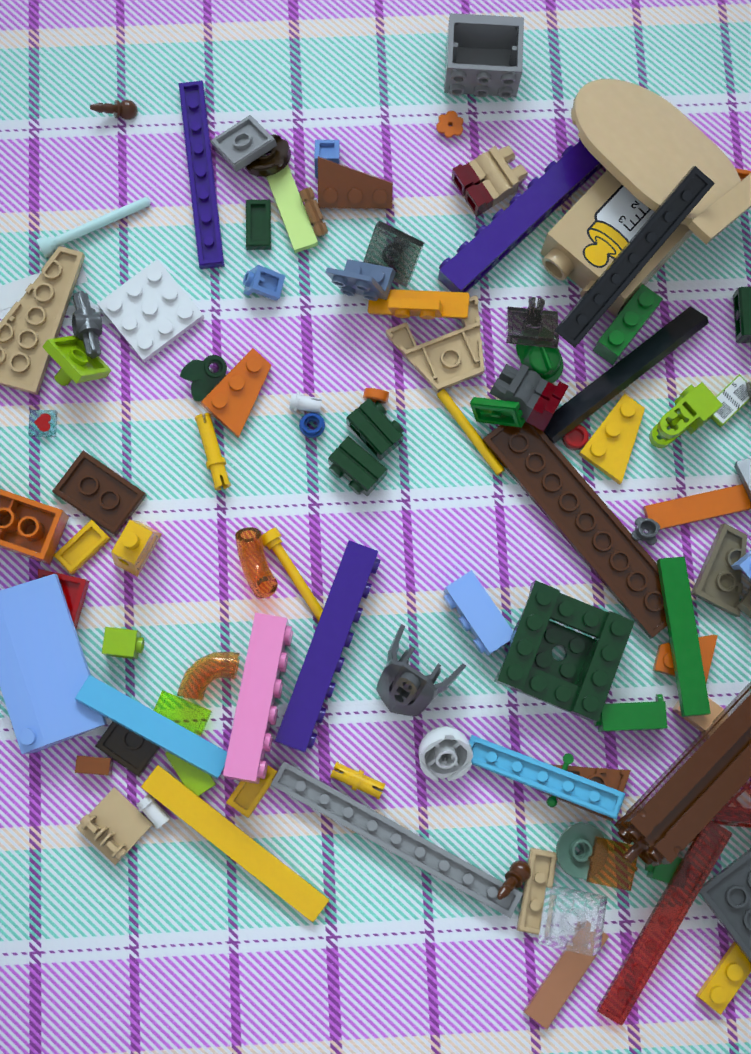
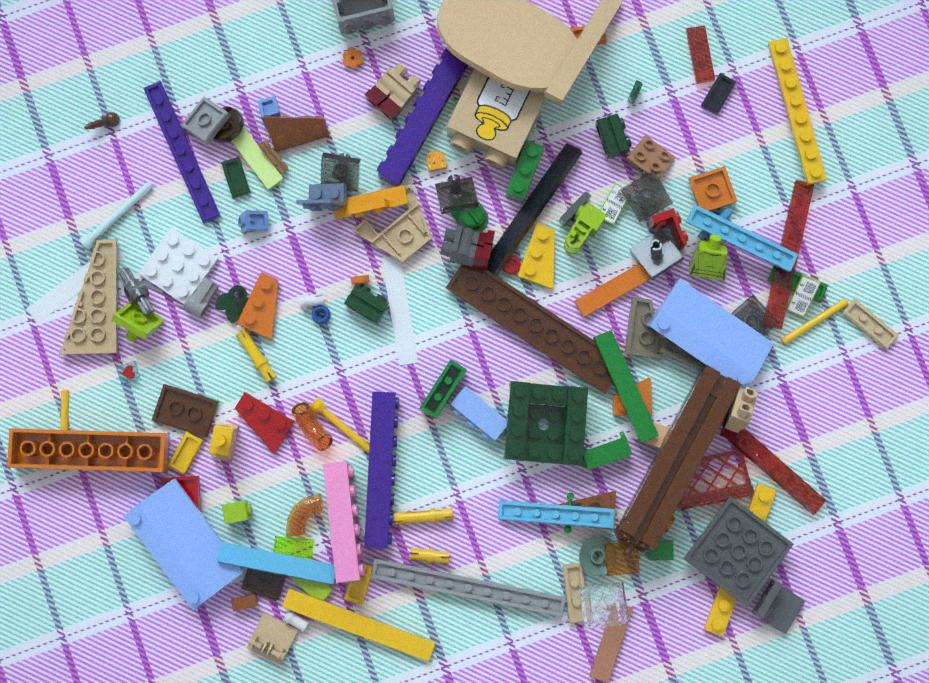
camera: 10 degrees left, 5 degrees up
(161, 361) = (199, 301): none -> light grey piece
(197, 537) = (264, 420): none -> red wing
(357, 467) = (362, 335): dark green brick -> none
(365, 725) = (423, 516): none -> yellow pin
(407, 689) = (444, 484): dark grey piece -> none
(414, 452) = (399, 310): none -> white sticker
(441, 566) = (443, 389): none -> green brick
(445, 754) = (484, 519): white cylinder -> none
(470, 432) = (436, 285): yellow bar -> none
(497, 412) = (449, 266): green tile -> none
(517, 279) = (436, 161): none -> light orange tile
(517, 874) = (558, 585): reddish brown bar -> none
(634, 256) = (513, 127): black tile -> none
(648, 524) = (579, 314): dark grey plate -> none
(663, 922) = (666, 586): clear red tile -> none
(674, 391) = (570, 213): none -> dark grey tile

